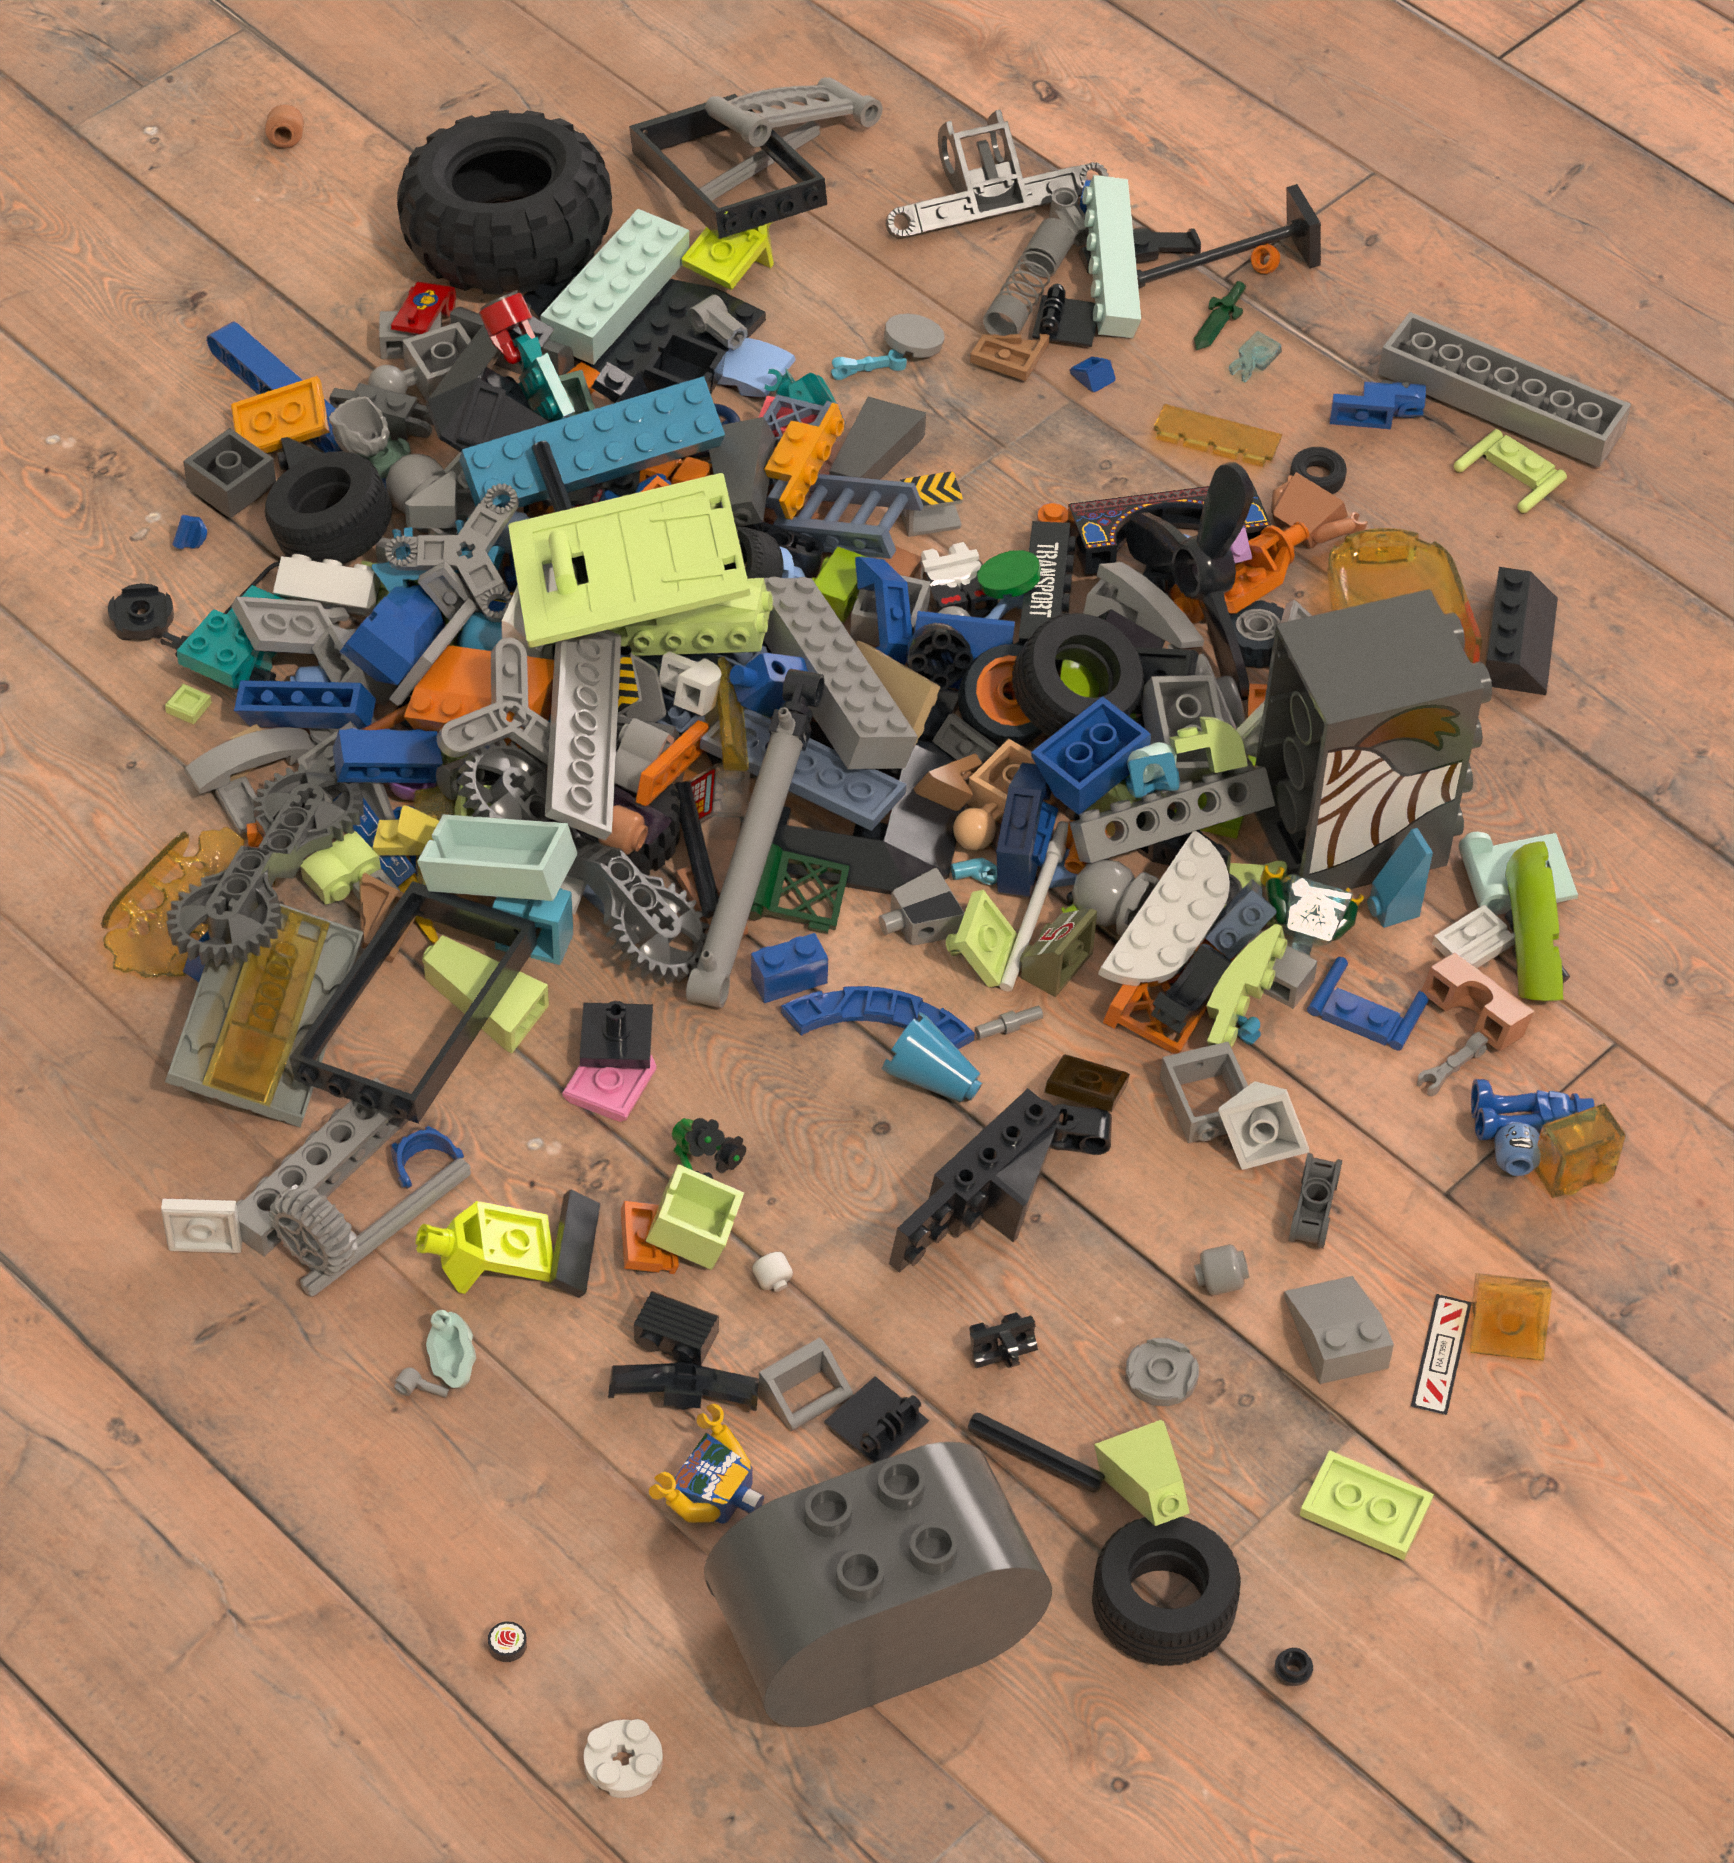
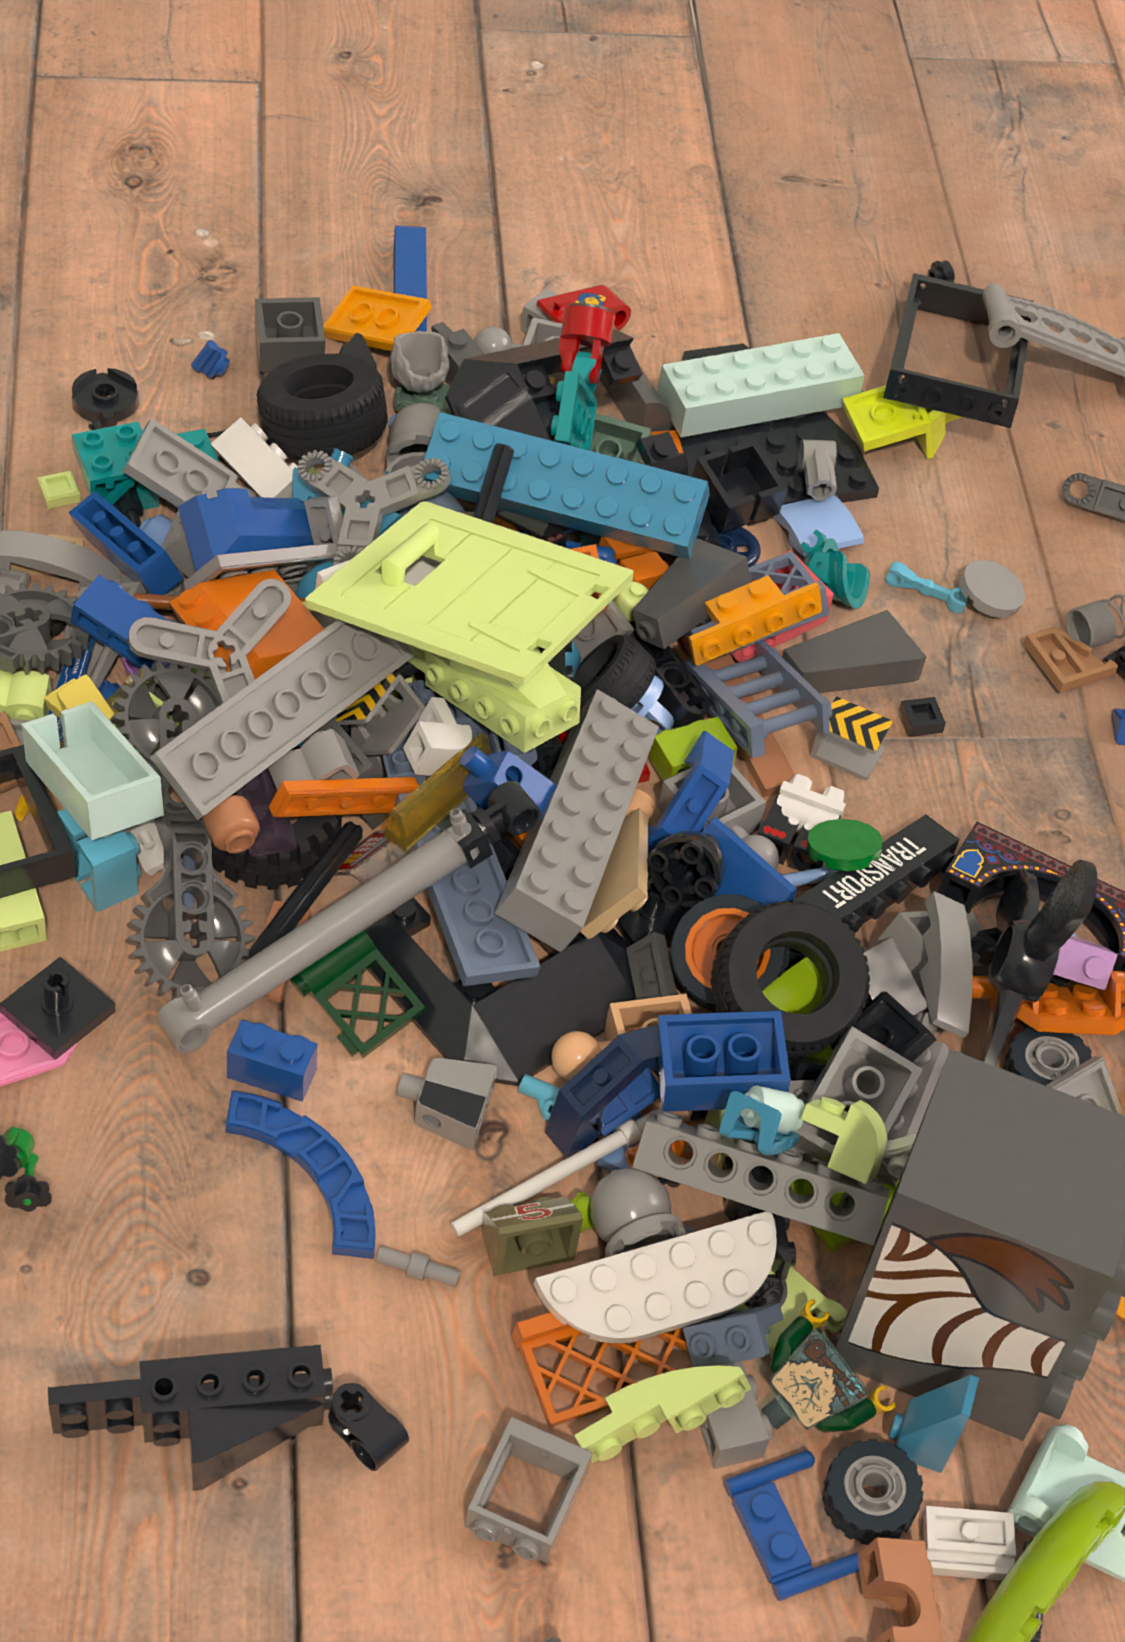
camera: 35 degrees right, 0 degrees up
(284, 126) = (636, 116): nougat head -> none
(434, 505) = (397, 449): light grey slope -> none
(512, 244) = (730, 261): black tyre -> none
(640, 112) = (942, 270): none -> black plate
(757, 162) = (996, 368): light grey axle -> none
(932, 1062) = (295, 1247): dark azure cone -> none
(949, 783) = (591, 993): medium nougat slope -> none
(957, 458) = (922, 716): none -> black plate
(984, 938) = (470, 1166): yellowish green tile -> none
(1015, 1334) = (45, 1579): black hips -> none
(1053, 513) = (959, 823): orange plate -> none
(1087, 1082) = (419, 1385): dark brown tile -> none
(1192, 990) = (595, 1374): black arch -> none
(1249, 1029) = (642, 1456): dark azure hand -> none
(1262, 1125) = (529, 1569): white slope -> none
(1393, 934) = (877, 1466): none -> black wheel

